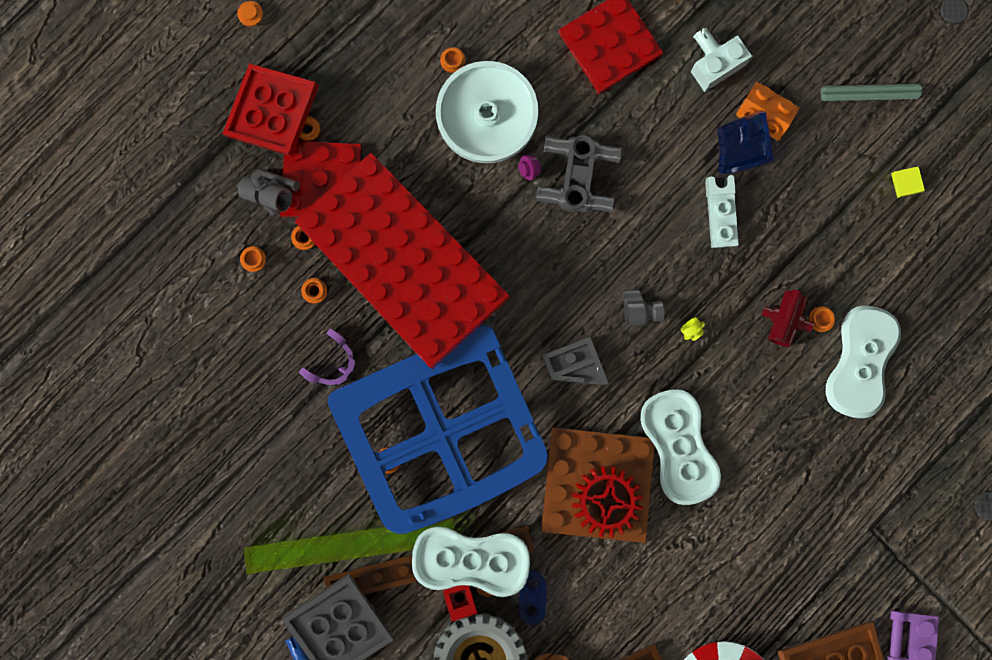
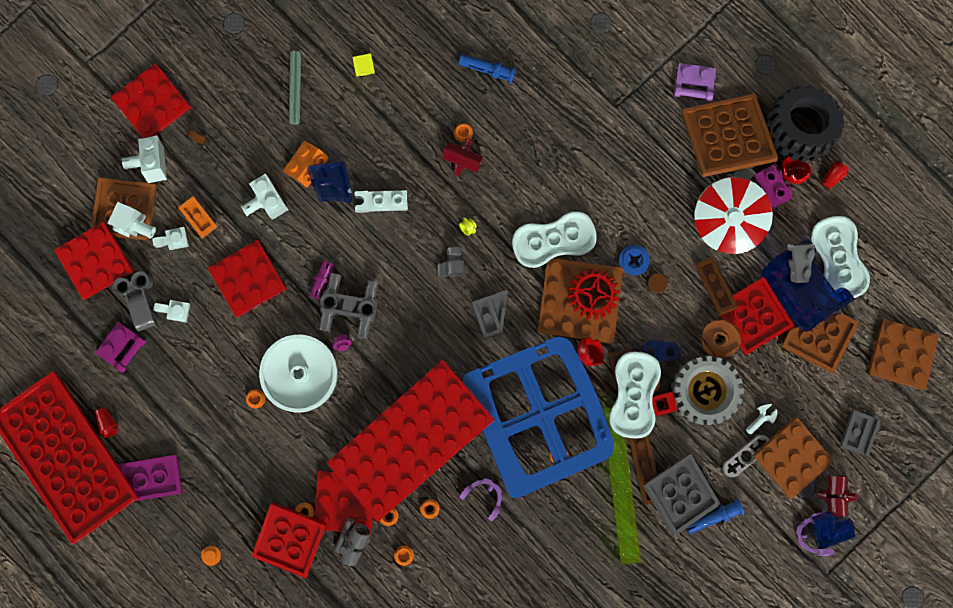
camera: 90 degrees left, 0 degrees up
(528, 500) = (590, 352): none -> red hair
(612, 137) = (321, 280): none -> magenta pin
(626, 591) = (657, 283): none -> reddish brown tile
(654, 570) = (643, 261): none -> blue gear
(858, 380) = (481, 100): light aqua plate -> none
(913, 360) = (496, 70): none -> blue pin

